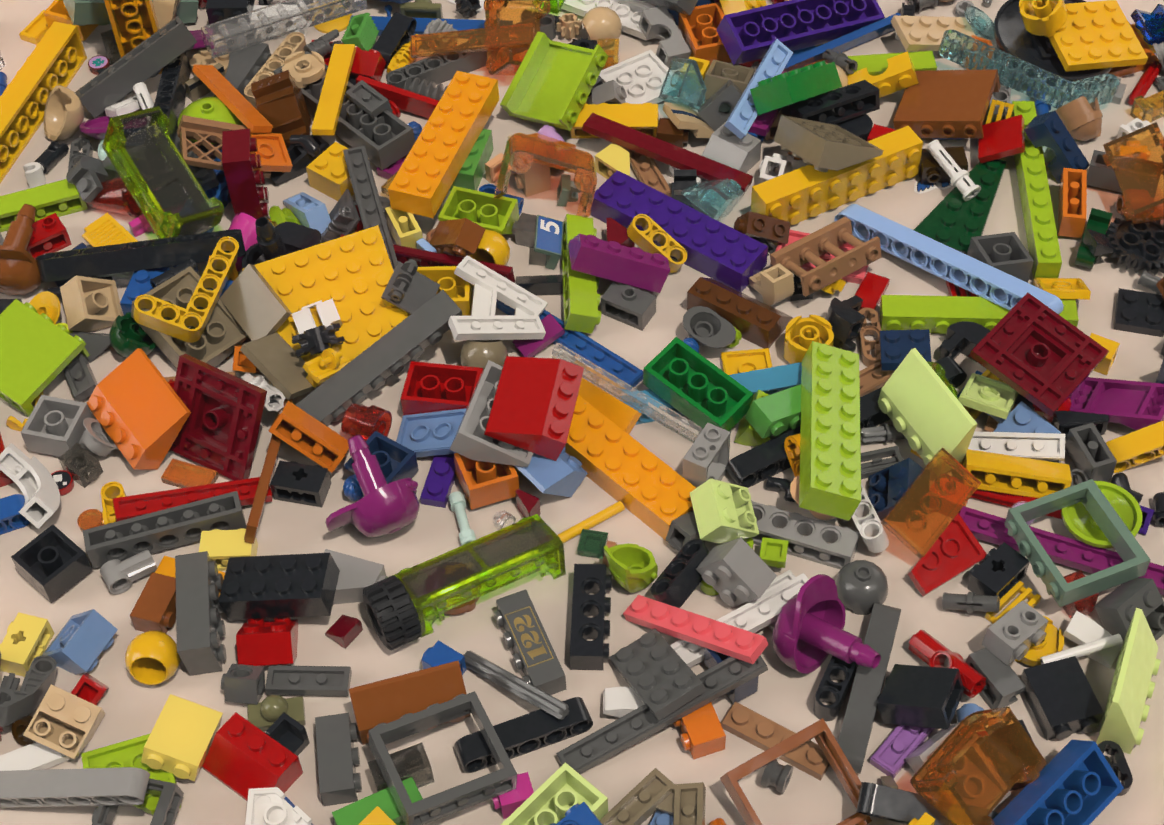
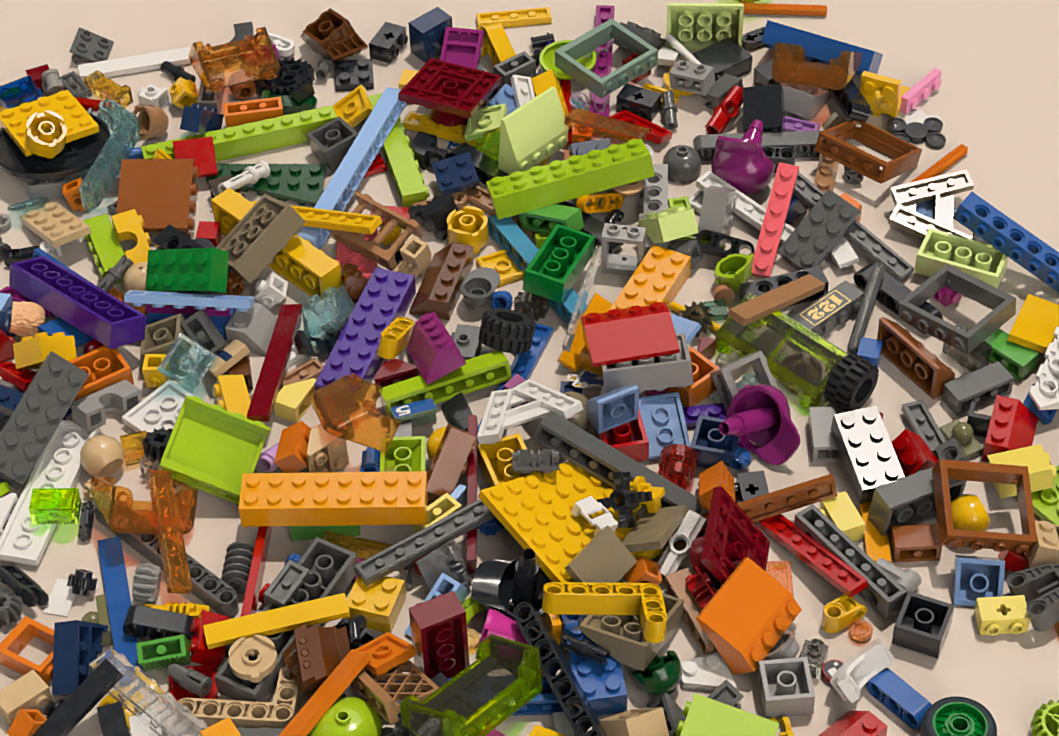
camera: 110 degrees left, 5 degrees down
(162, 661) = (983, 473): none -> dark orange window
(448, 487) = (723, 379): none -> light grey window
(449, 366) = (613, 408): none -> medium blue slope
(537, 566) = (776, 299): none -> medium nougat tile
(575, 509) = (700, 314): none -> clear smoke gear
(628, 311) = (506, 330): none -> black tyre
(863, 208) = (338, 220): none -> yellow tile

